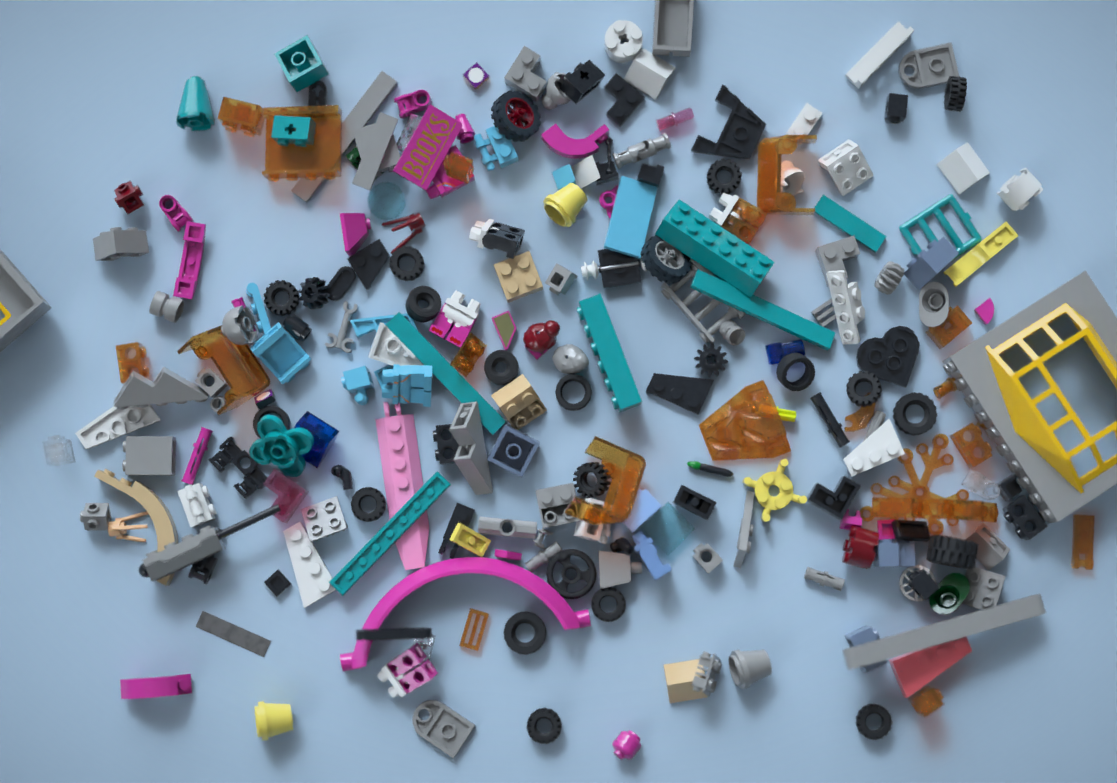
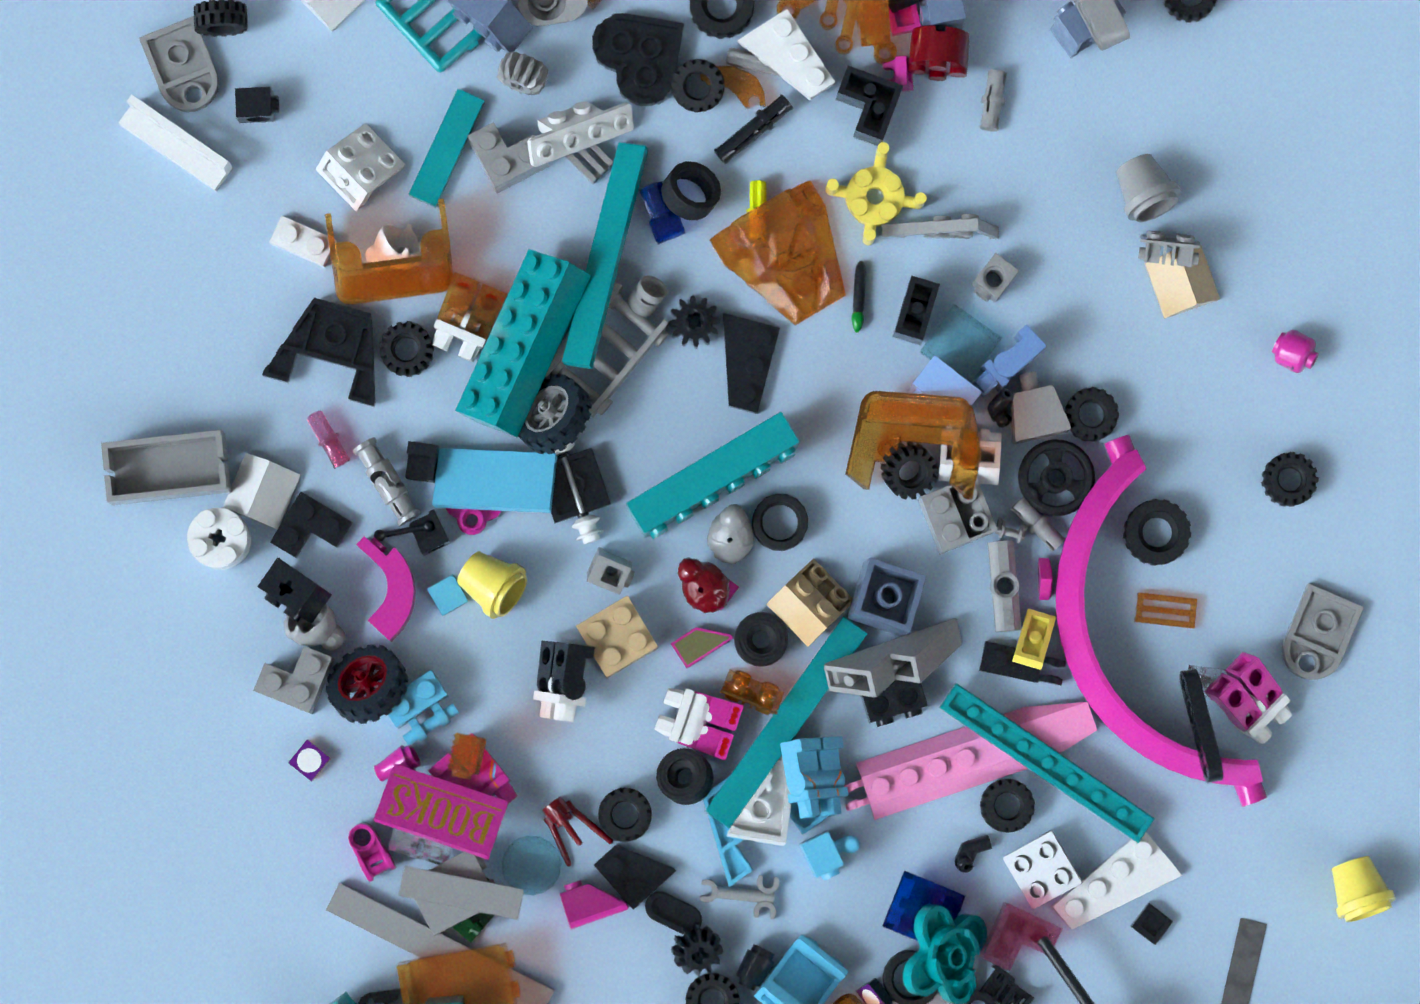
camera: 115 degrees left, 0 degrees up
(585, 172) = (435, 561): white sticker -> none

